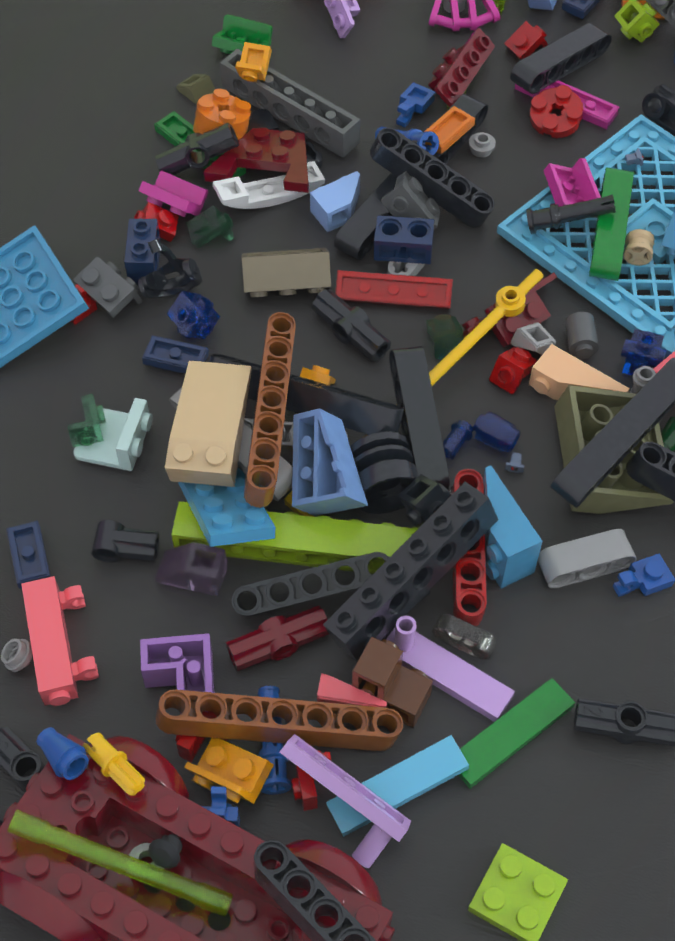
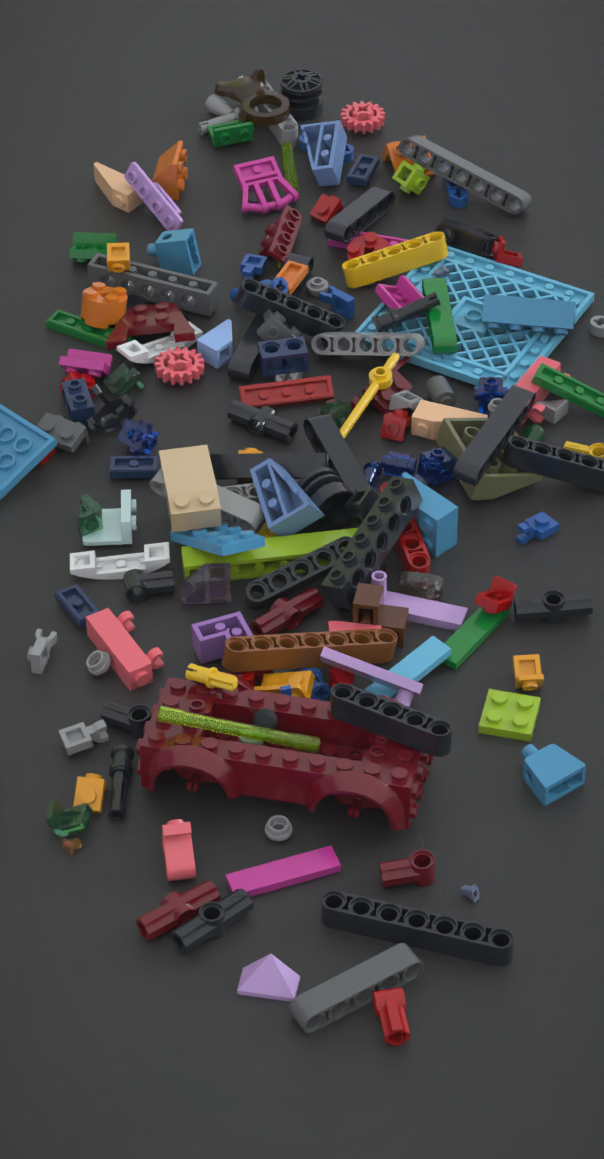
camera: 15 degrees left, 15 degrees down
(63, 754) = (175, 679): blue cone -> none
(102, 502) = (114, 567): none -> white slope
(196, 87) = (68, 290): olive slope -> none
(211, 143) = (104, 320): black piece -> none
(270, 410) = (231, 468): dark orange beam -> none
(280, 221) = (179, 365): none -> coral gear
(286, 271) = (197, 396): dark tan slope -> none
(333, 64) = (177, 251): none -> dark azure torso
(501, 174) = (341, 302): none -> blue plate
(524, 243) = (358, 347): none -> light grey beam
(542, 449) = (436, 465): none -> clear blue brick
(555, 692) = (498, 597): none -> red bracket
(562, 830) = (527, 672): none -> light orange bracket
(583, 130) = (395, 259): none -> yellow beam
(586, 558) = (490, 524): light grey beam -> none
(639, 247) = (465, 326): tan wheel -> none

